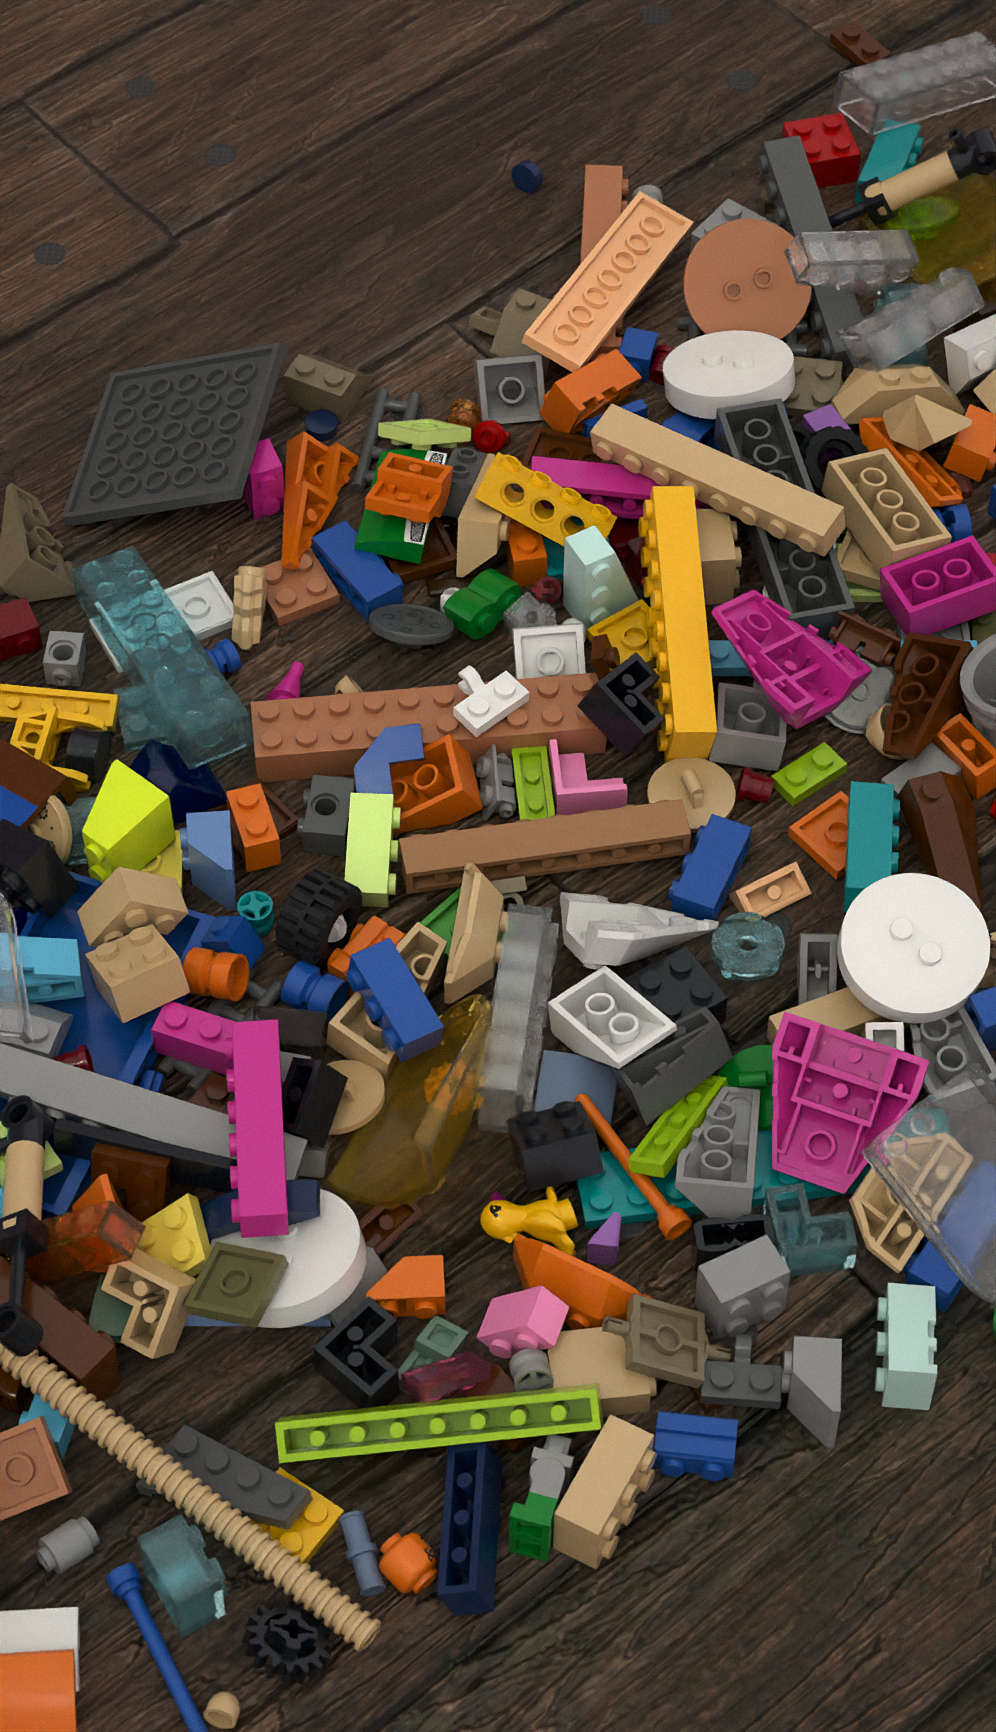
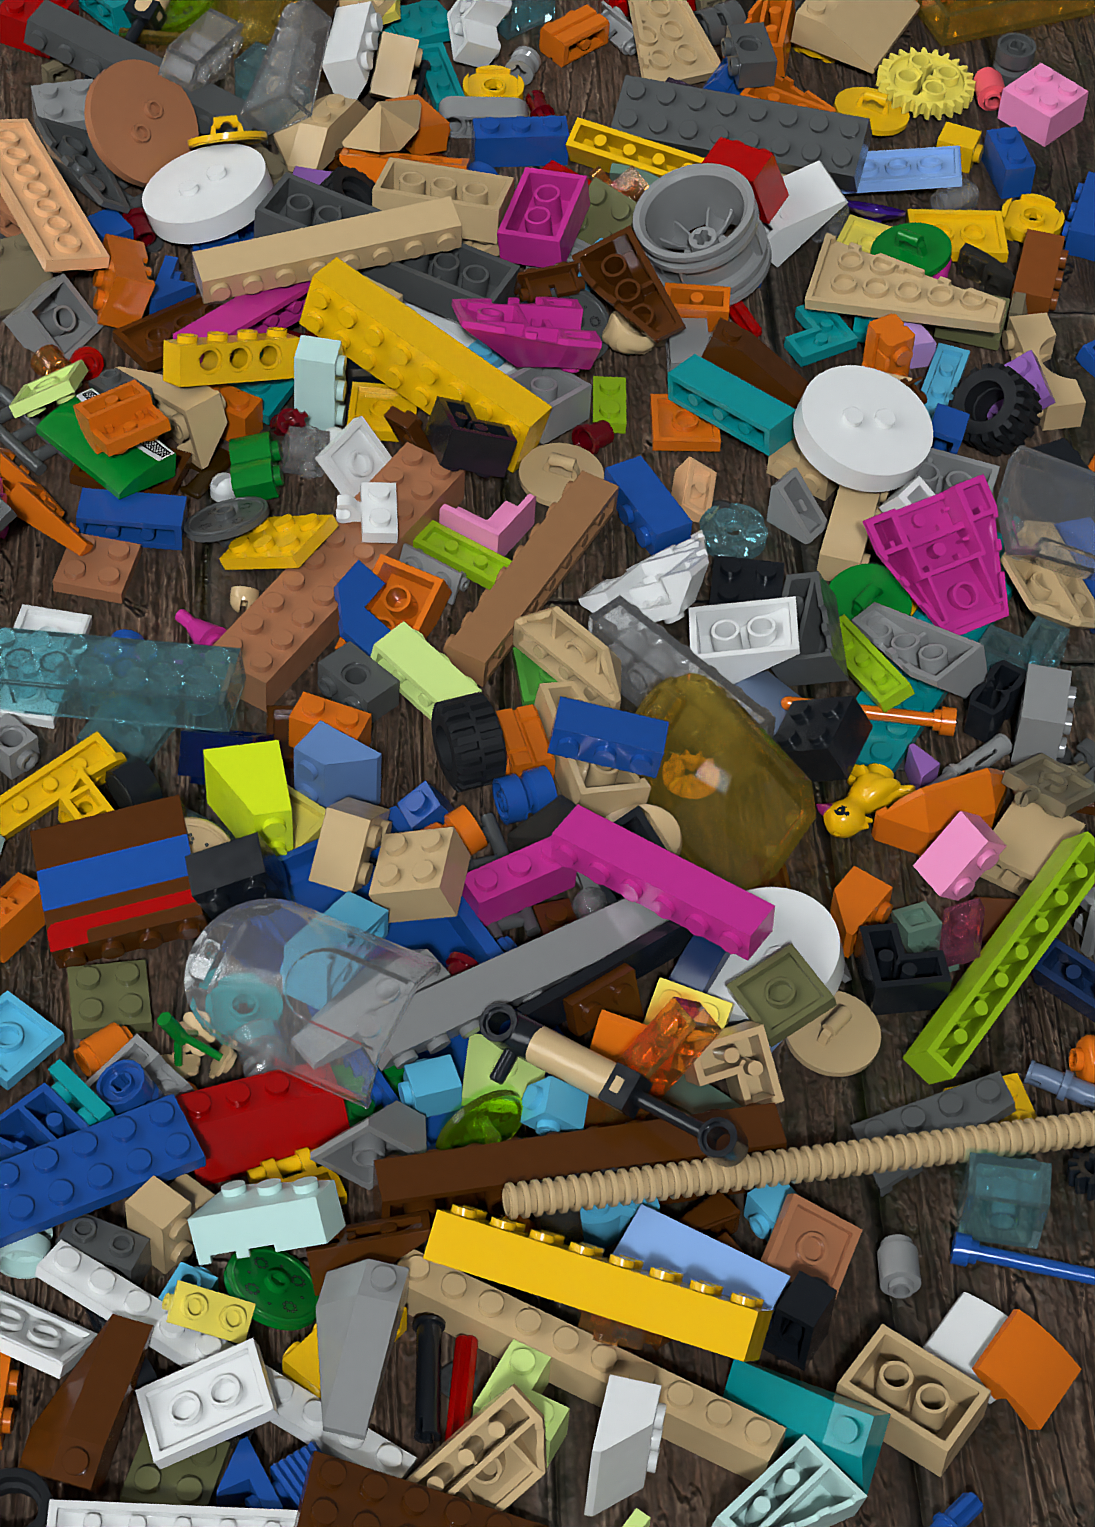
camera: 55 degrees left, 5 degrees down
(248, 606) = (96, 595): tan rock -> none
(261, 906) = (401, 778): teal wheel -> none
(269, 1361) = (838, 1040): none -> tan shield
(412, 668) = (279, 542): none -> yellow plate
(531, 1370) = (1009, 878): light grey wheel -> none
(664, 297) = (80, 164): none -> dark grey wedge
(687, 1285) = (993, 750): none -> light grey pin
(797, 344) = (239, 137): none -> yellow shield

